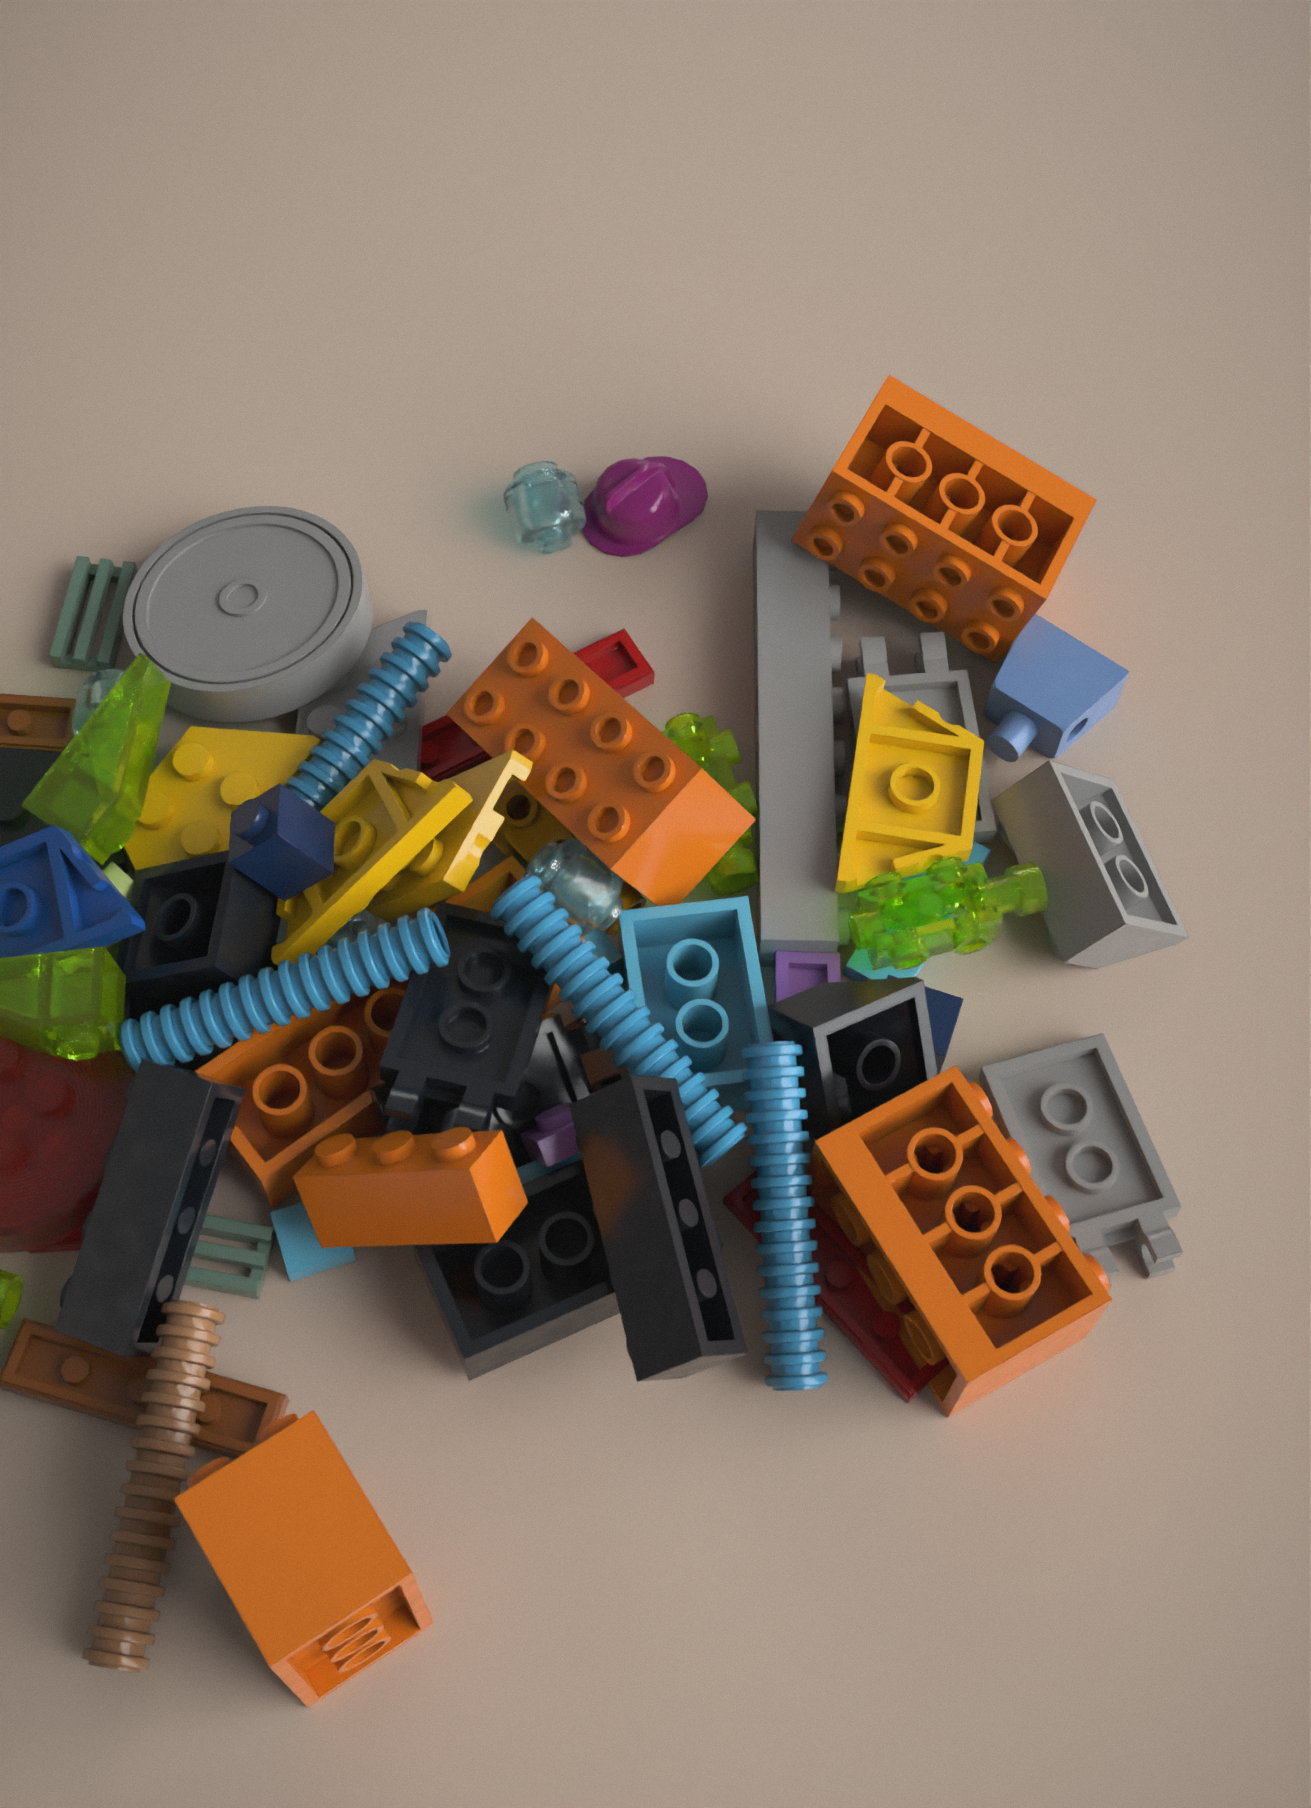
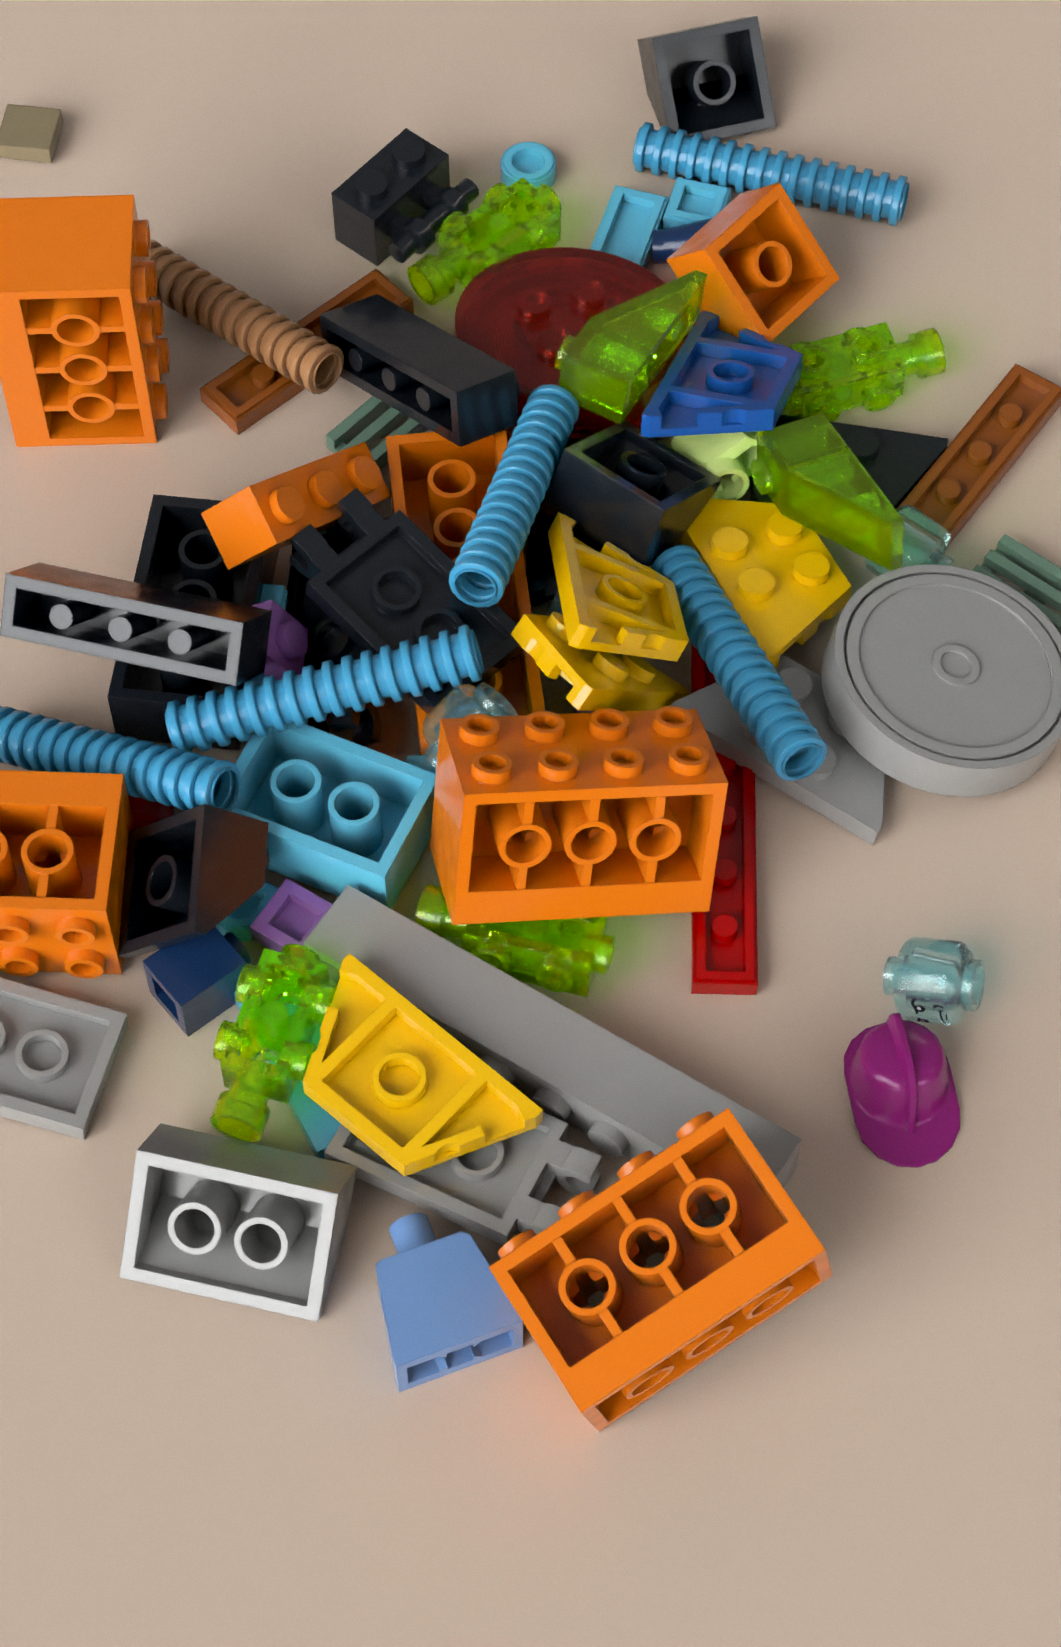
camera: 125 degrees right, 5 degrees down
(281, 842) = (650, 540): dark blue brick -> none

